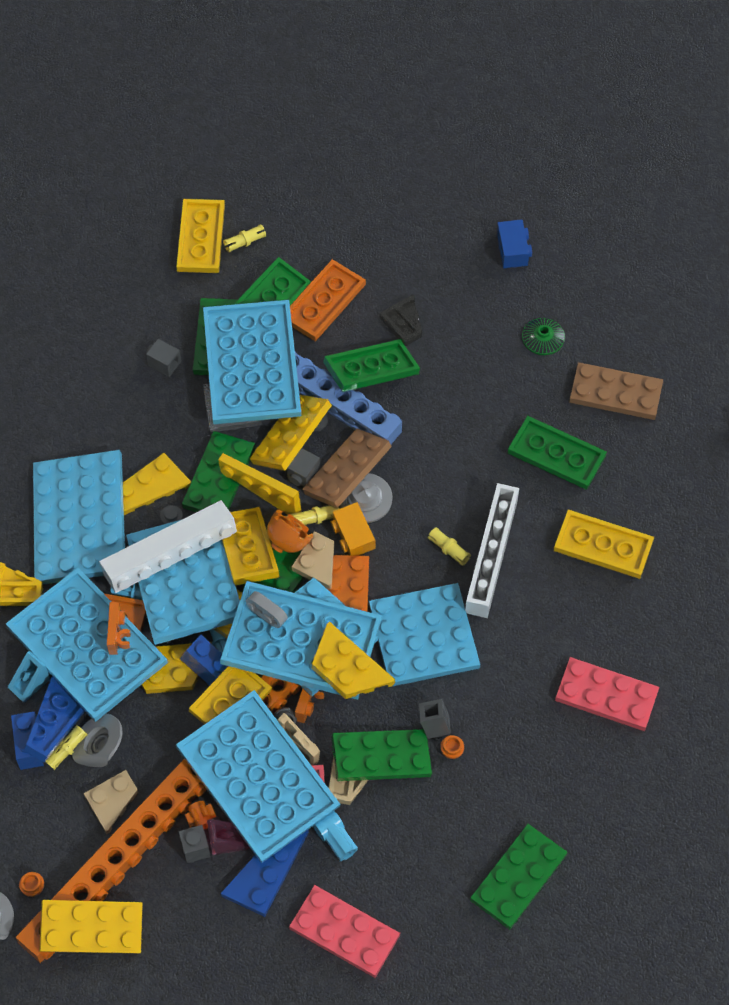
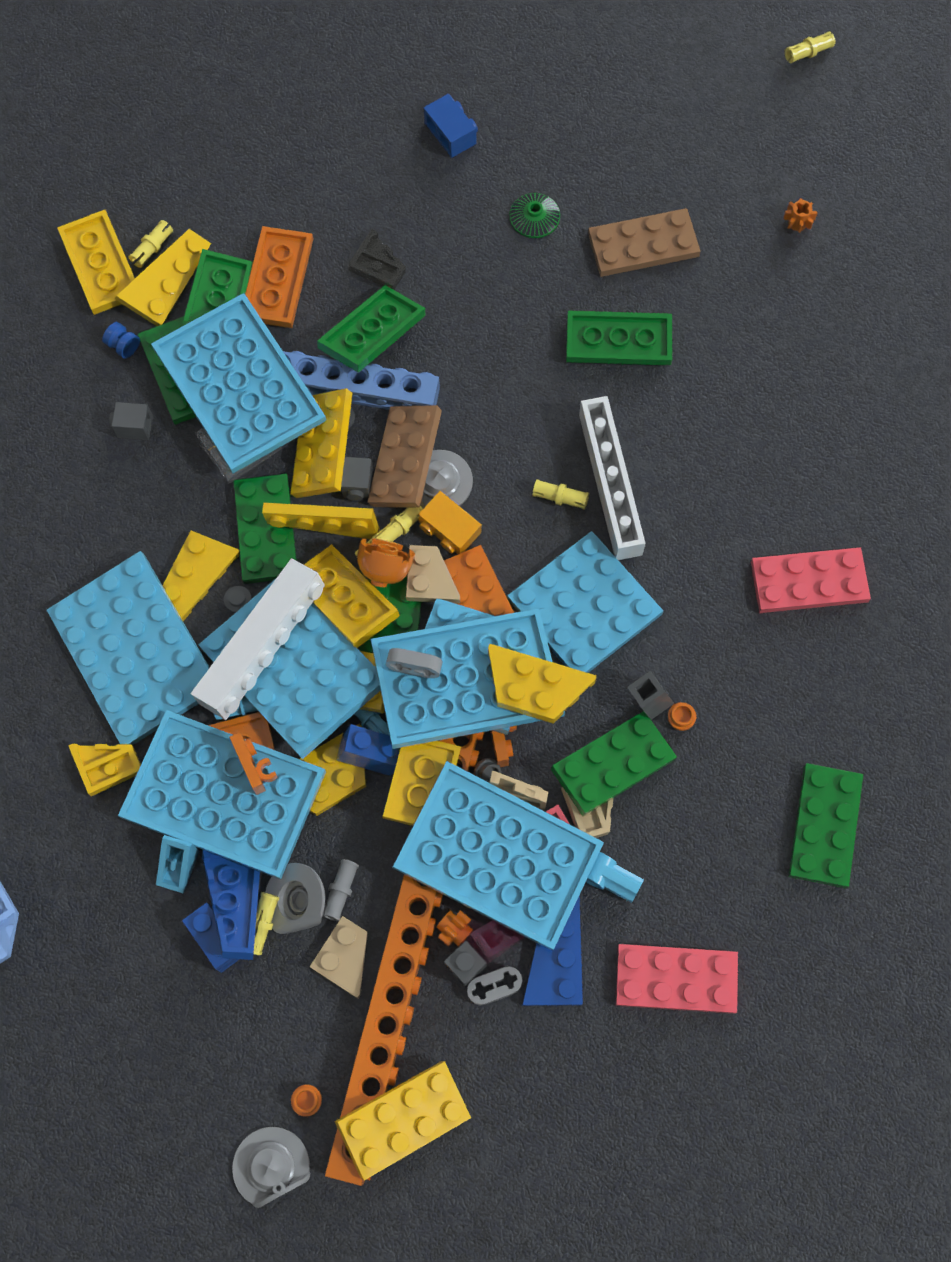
camera: 25 degrees left, 10 degrees up
(133, 751) = (340, 890): none -> light grey pin
(187, 299) = (124, 342): none -> blue wheel
(206, 876) = (491, 979): none -> light grey beam
(237, 269) = (162, 282): none -> yellow wing
(603, 544) = (721, 417): yellow plate -> none

